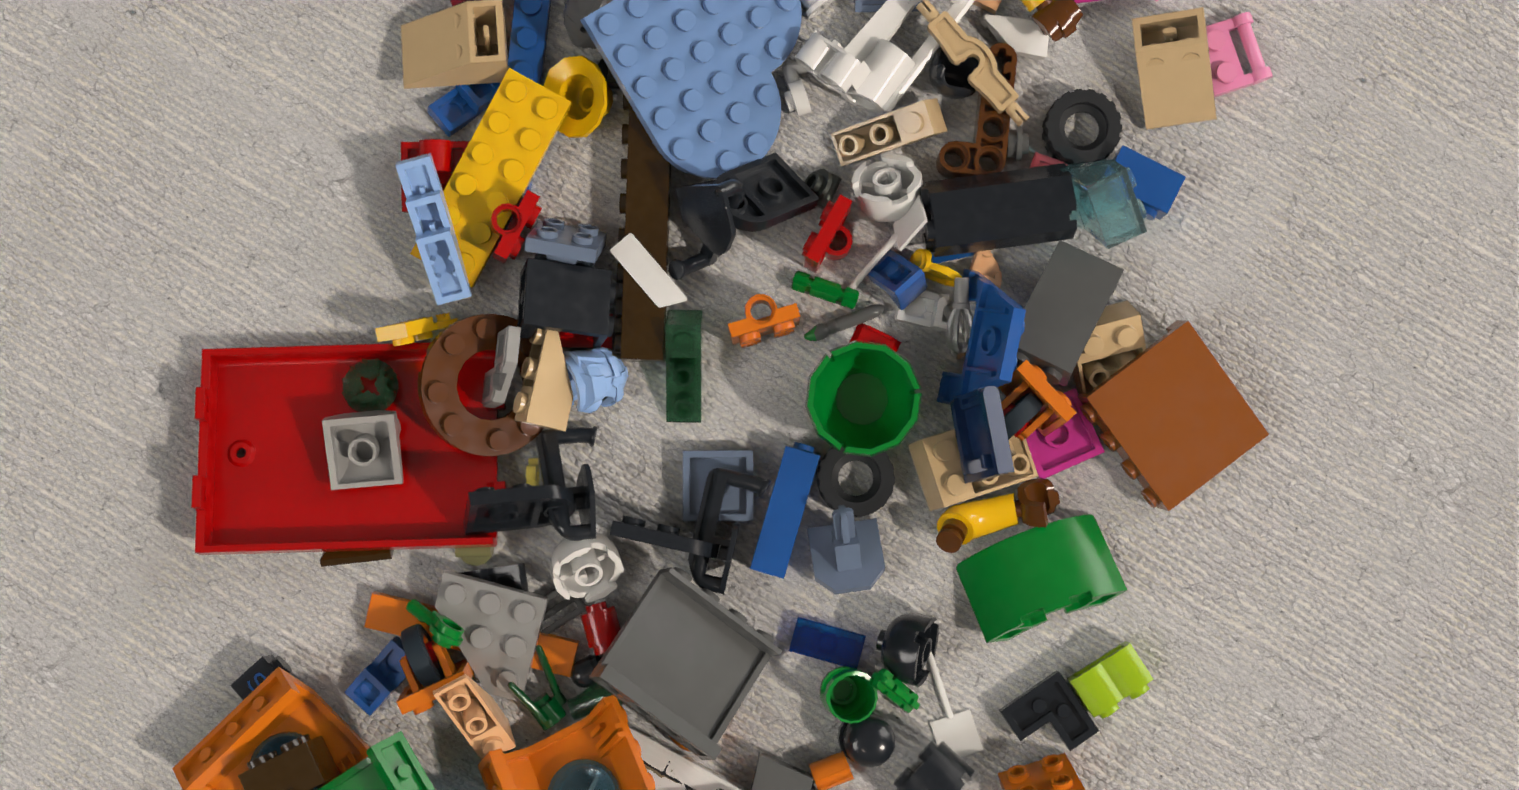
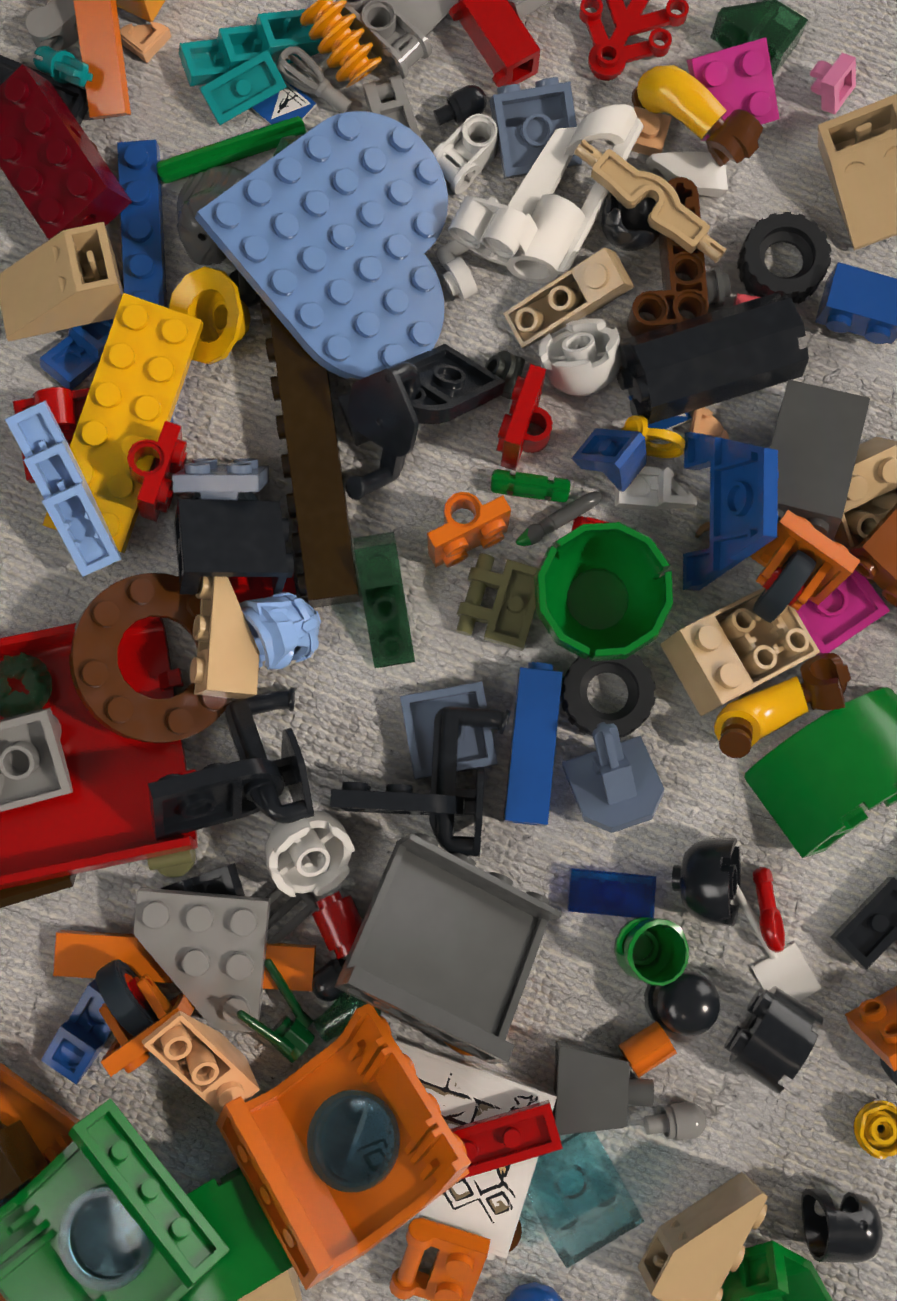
camera: 10 degrees left, 5 degrees down
(413, 329) = (53, 609): yellow hinge -> none
(444, 630) = (147, 960): green plate -> none
(498, 379) = (168, 645): light grey tile -> none
(533, 472) = (226, 751): light yellow piece -> none
(647, 272) = (322, 496): white sticker -> none
(790, 392) = (513, 606): none -> olive plate
(895, 690) = (706, 935): green axle -> none
(904, 231) = (609, 399): white piece -> none
(952, 687) = (770, 917): none -> red piece
(960, 304) = (693, 475): light grey piece -> none
(981, 435) = (753, 605): dark blue container -> none
(1108, 201) = (839, 323): clear light blue slope -> none

